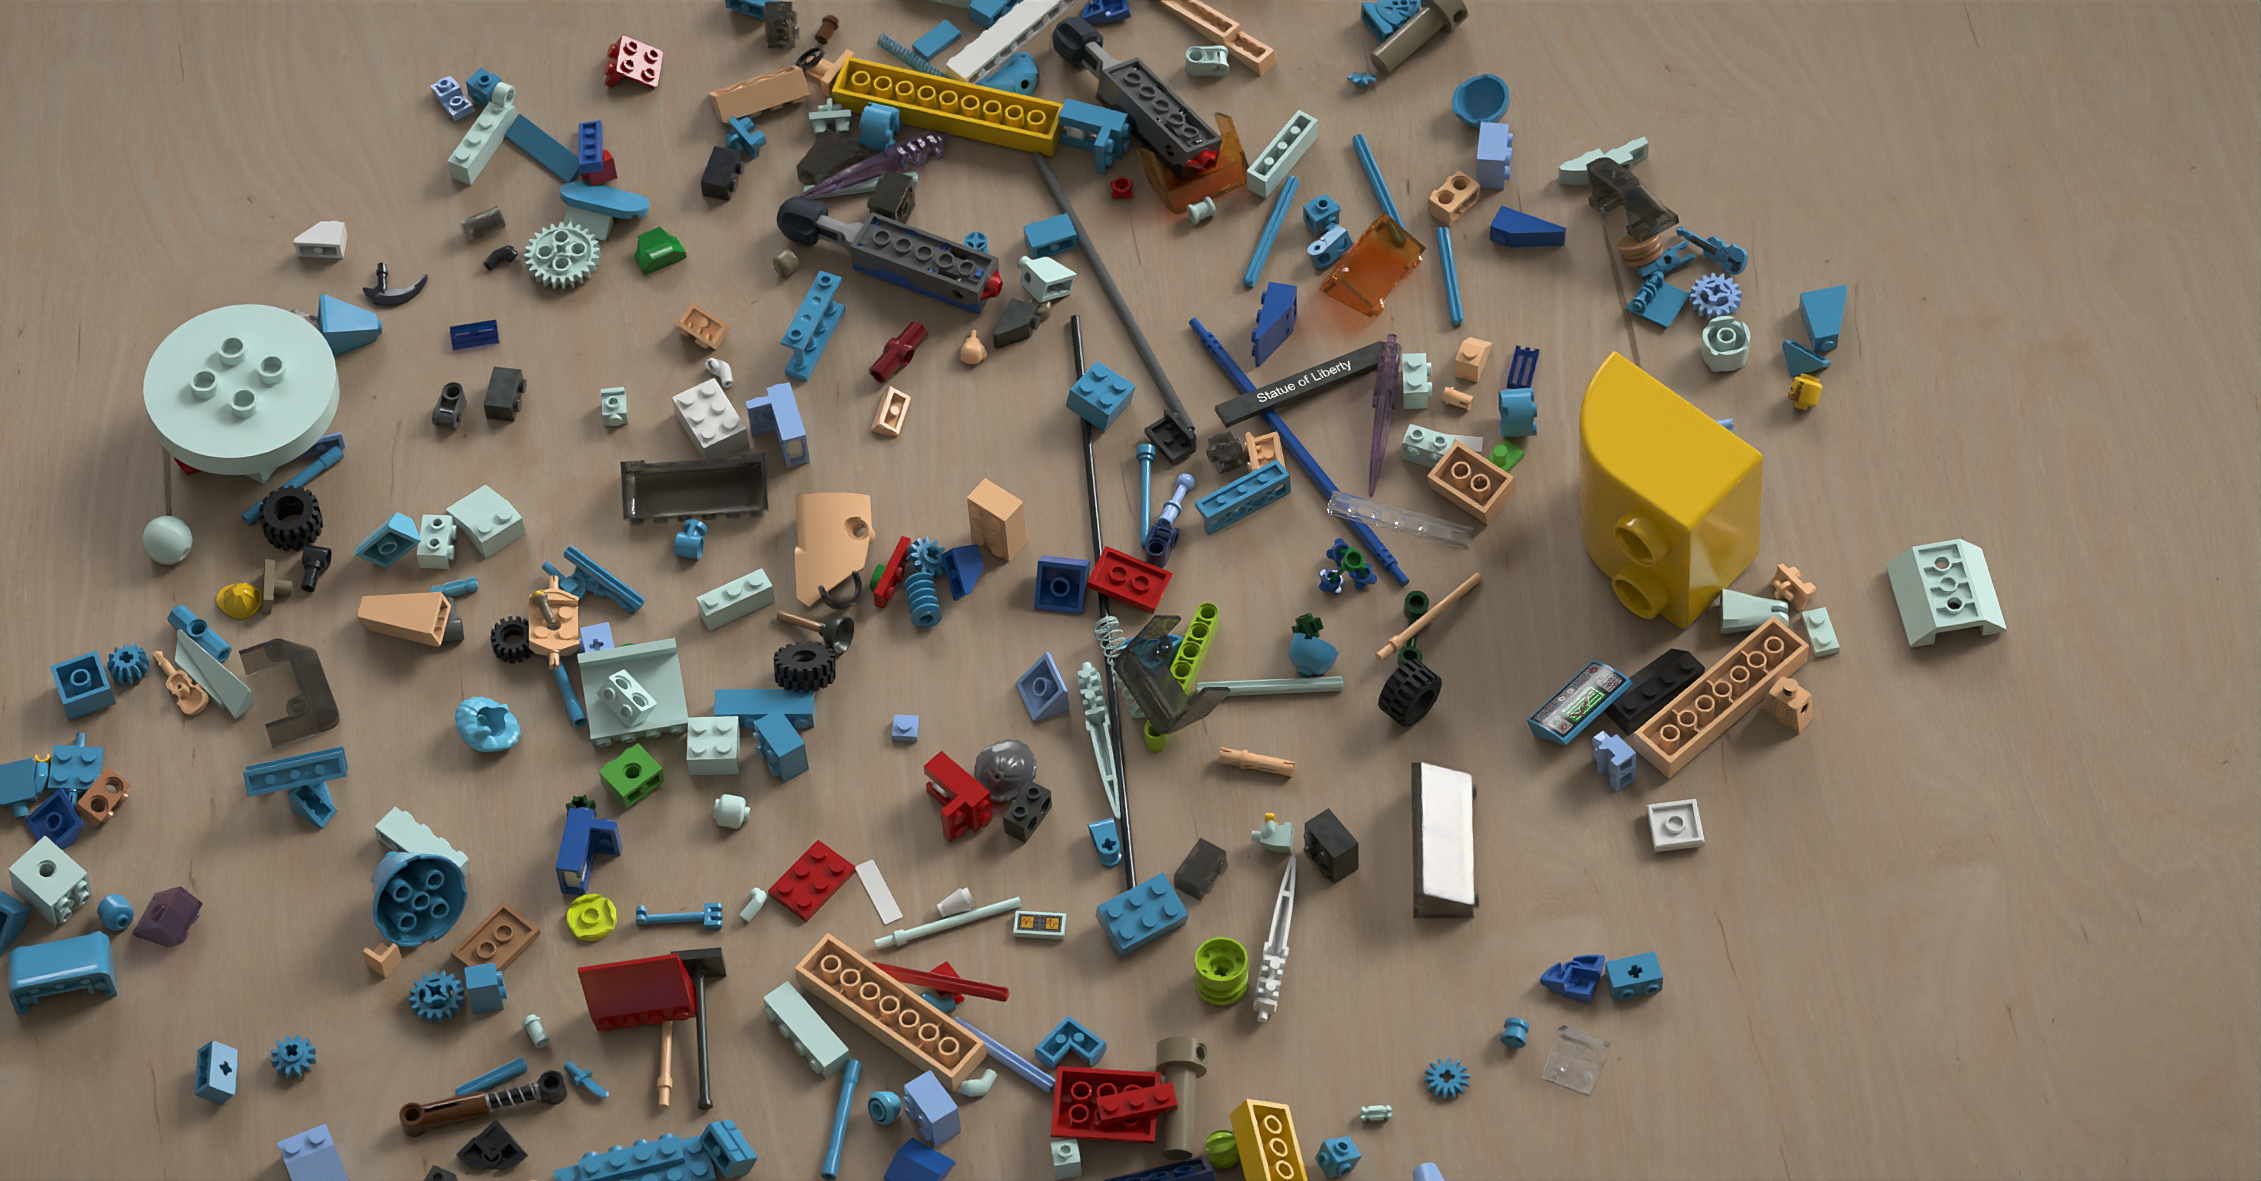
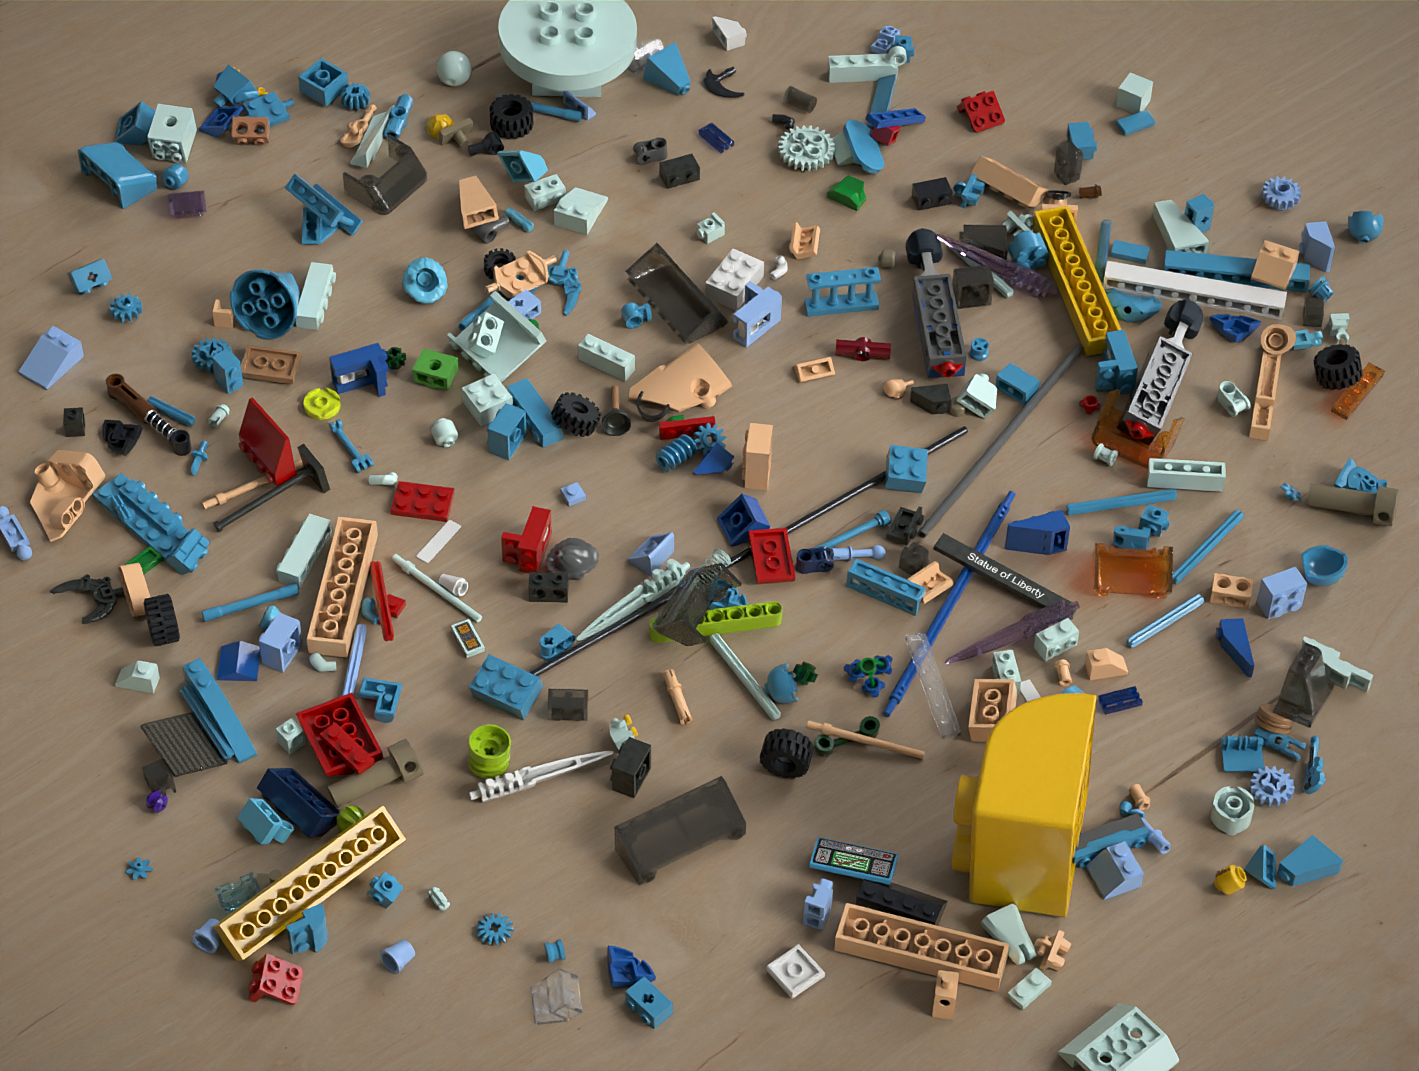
camera: 55 degrees right, 5 degrees down
(540, 599) = (528, 255): dark tan piece -> none
(604, 577) = (574, 284): dark azure axle -> none

